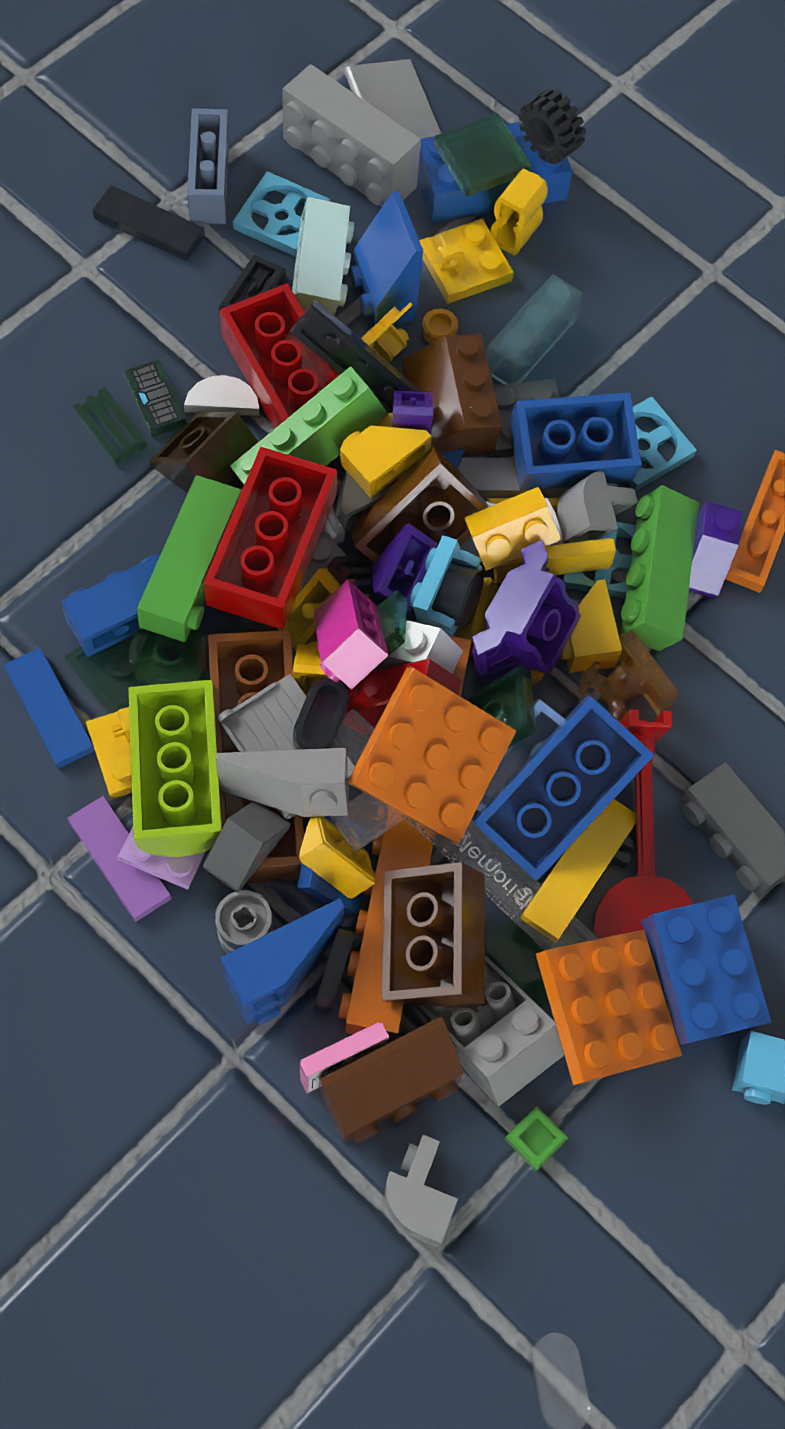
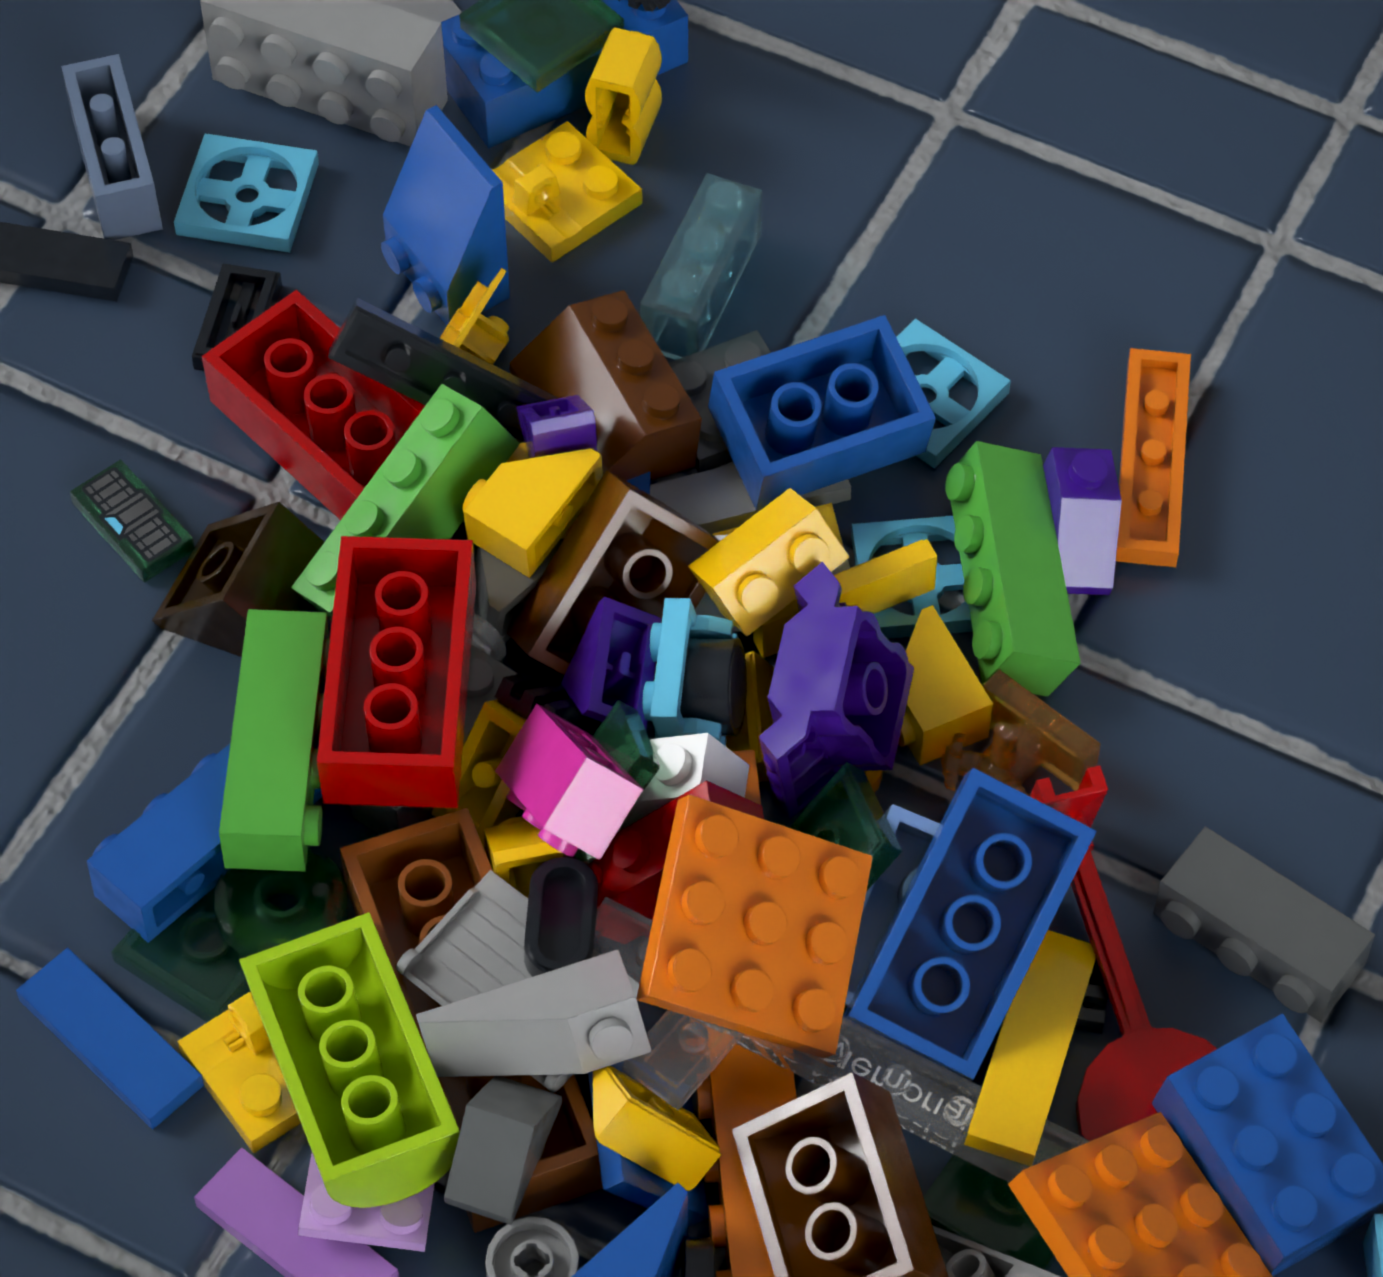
camera: 10 degrees left, 10 degrees down
(94, 404) = (39, 554): clear green tile -> none
(222, 395) = (239, 487): white tile -> none
(322, 254) = (333, 232): light aqua brick -> none
(439, 323) = (548, 295): light orange tile -> none
(590, 508) = (879, 503): light grey brick -> none

